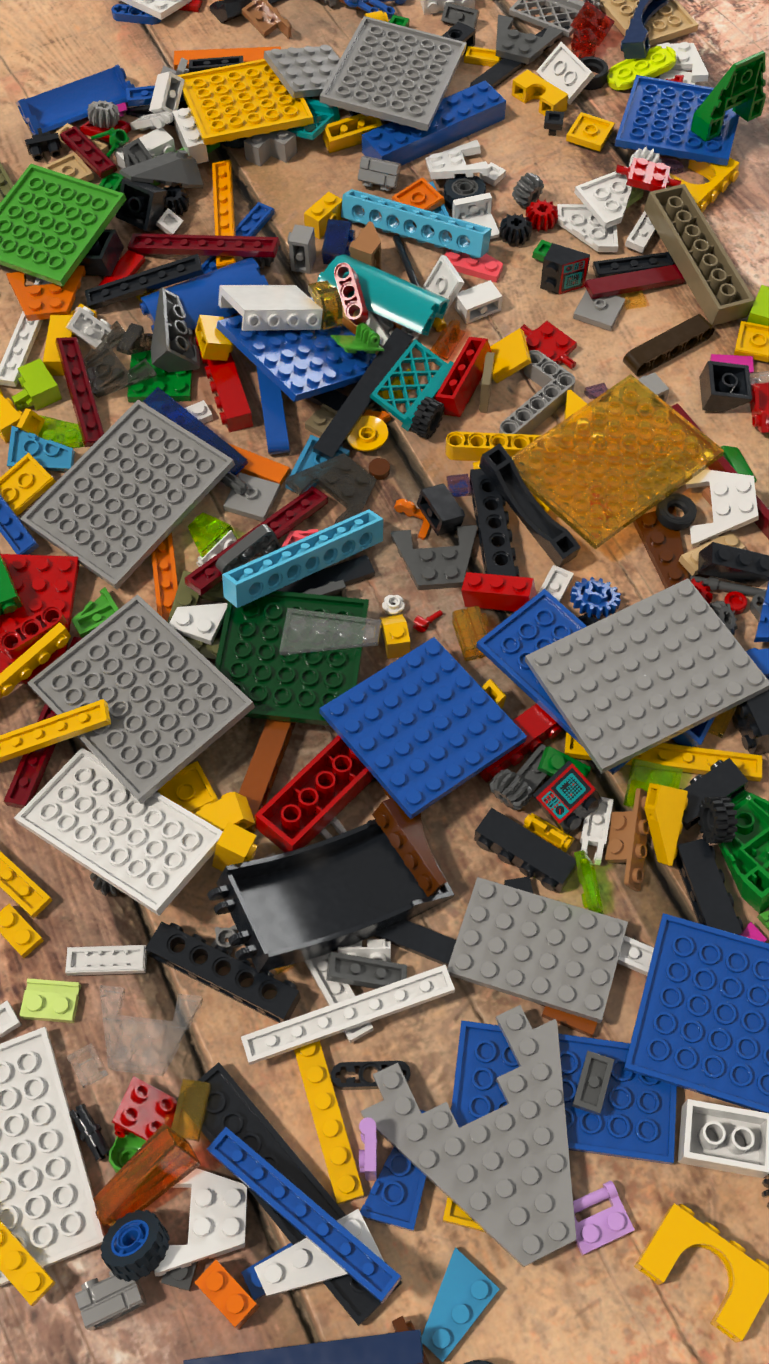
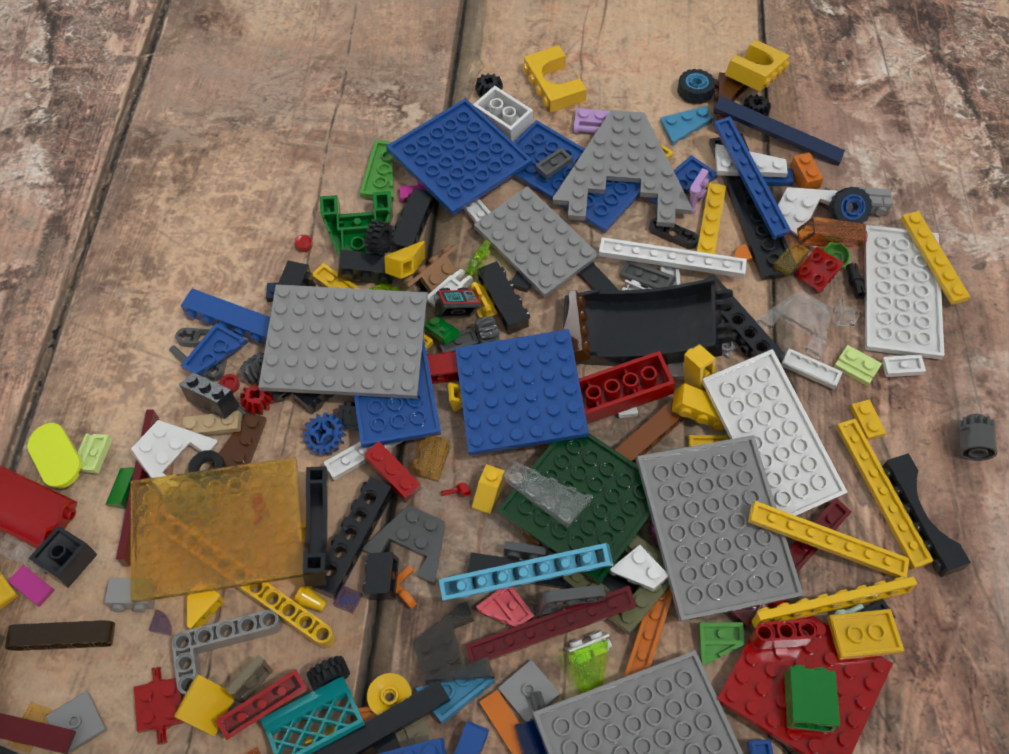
camera: 150 degrees left, 0 degrees up
(262, 1091) = (743, 252): none -> orange tile
(379, 468) = (401, 656): reddish brown tile -> none
(393, 609) = (474, 522): white plate -> none

